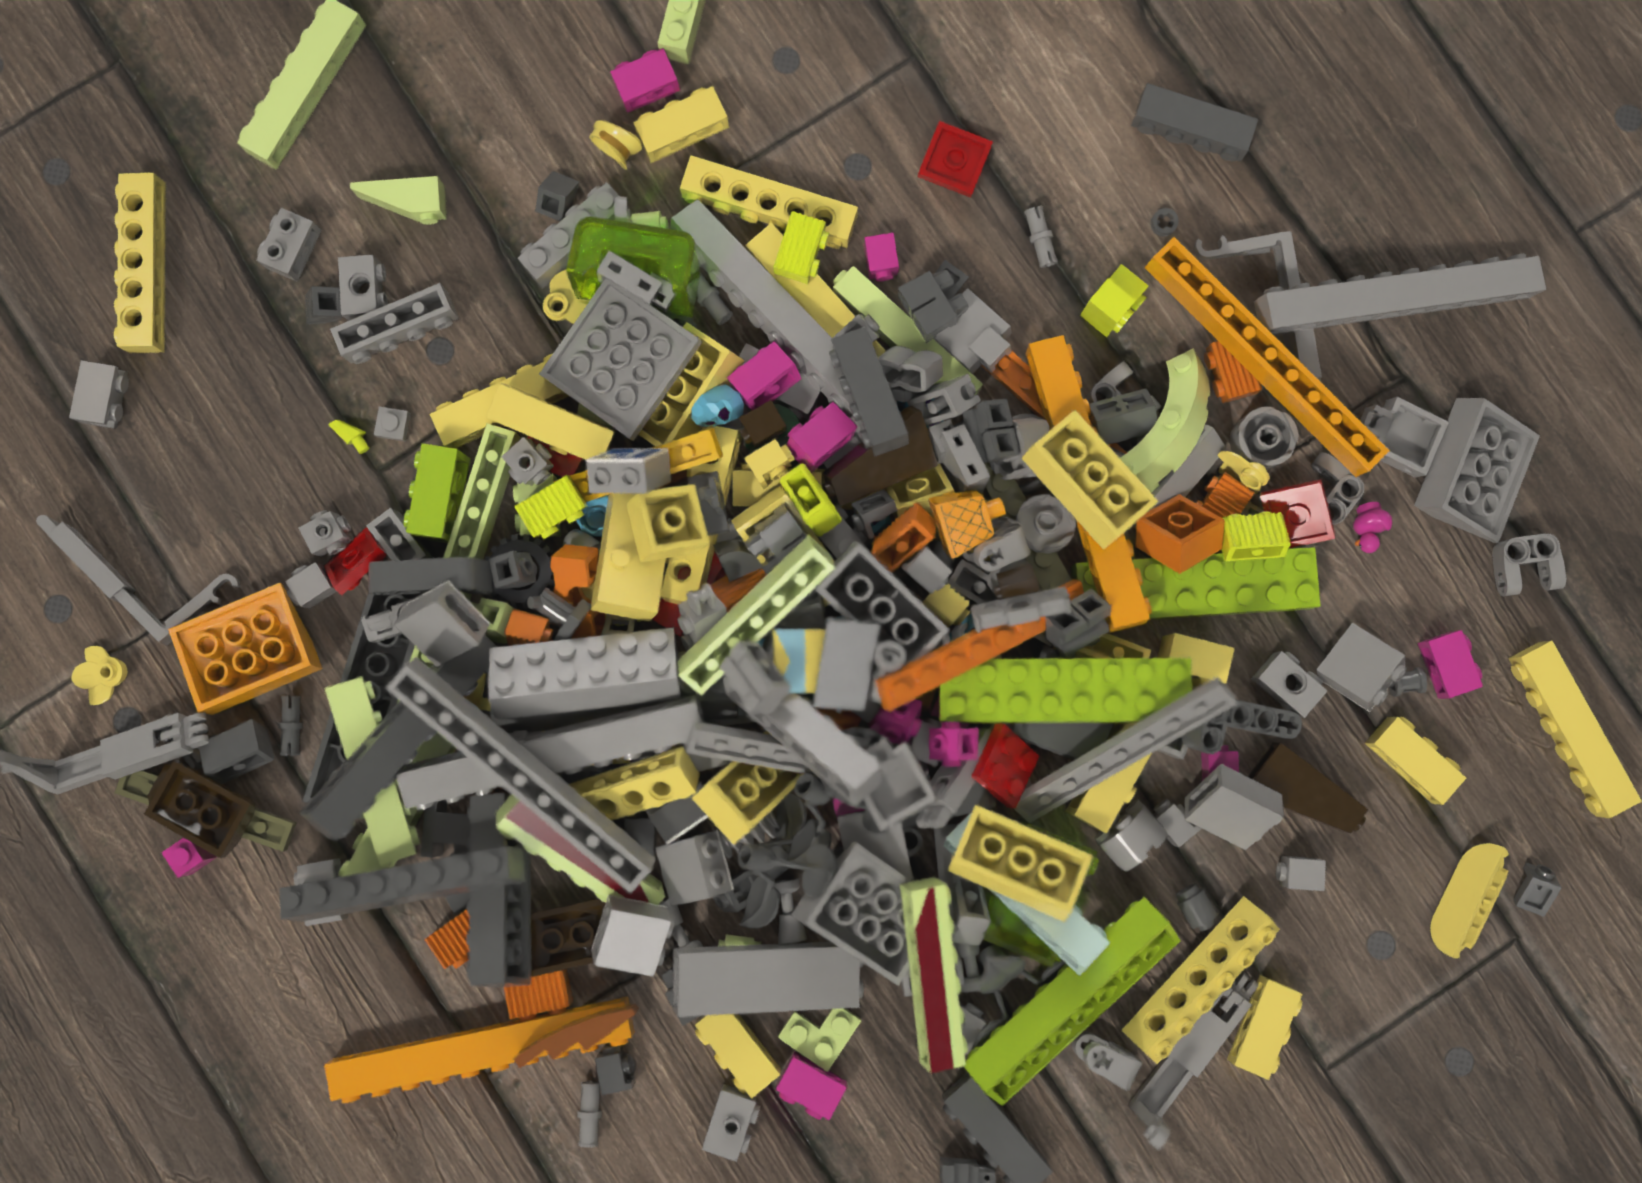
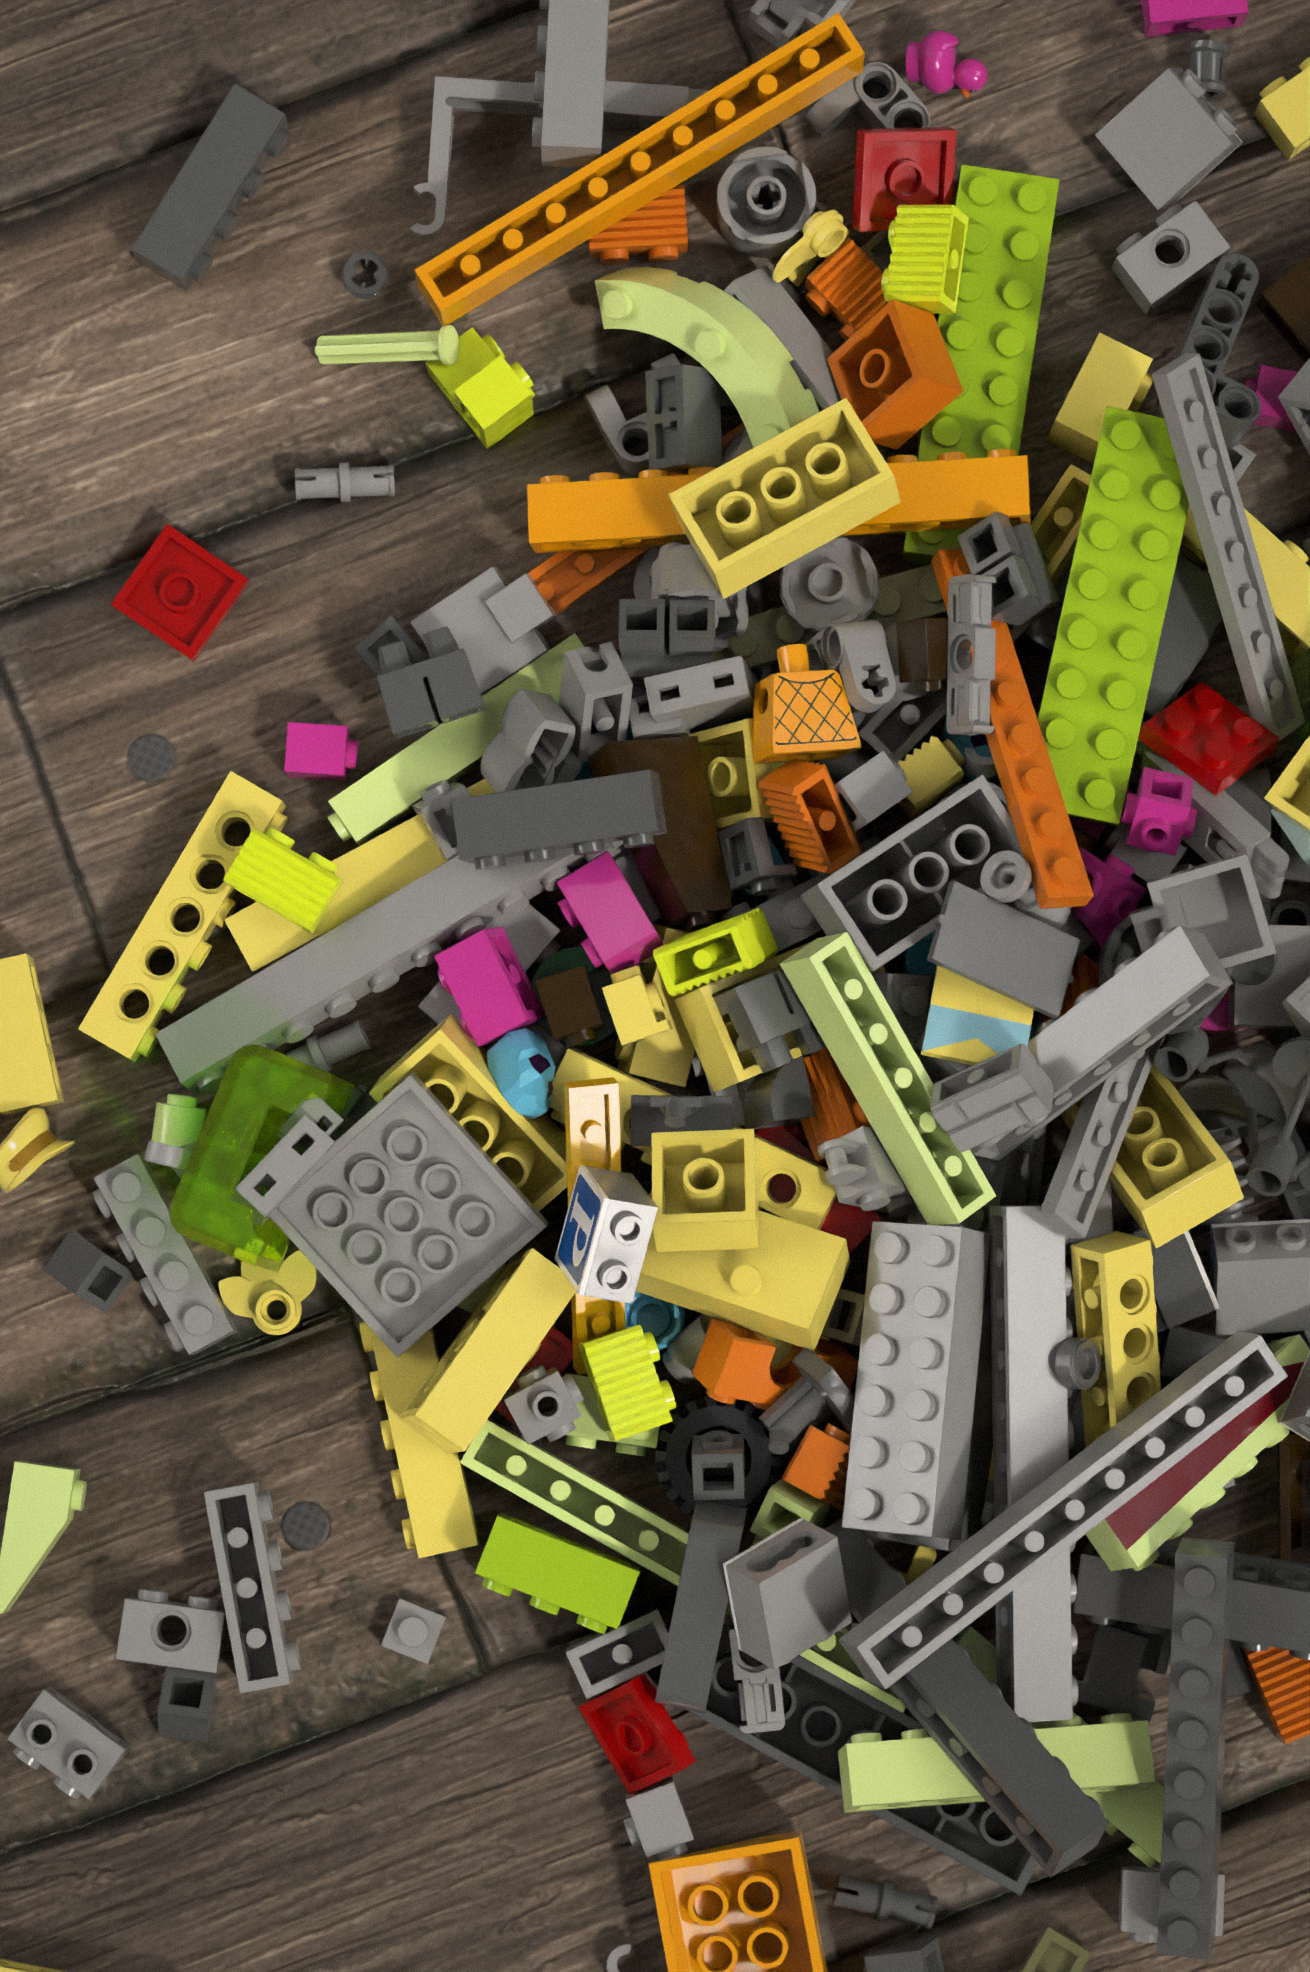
camera: 80 degrees left, 0 degrees up
(326, 533) = (573, 1792): light grey brick -> none
(350, 435) = (416, 1705): neon yellow bar -> none
(613, 765) = (1078, 1363): none -> flat silver tile
(1125, 242) = (389, 347): none -> yellowish green axle

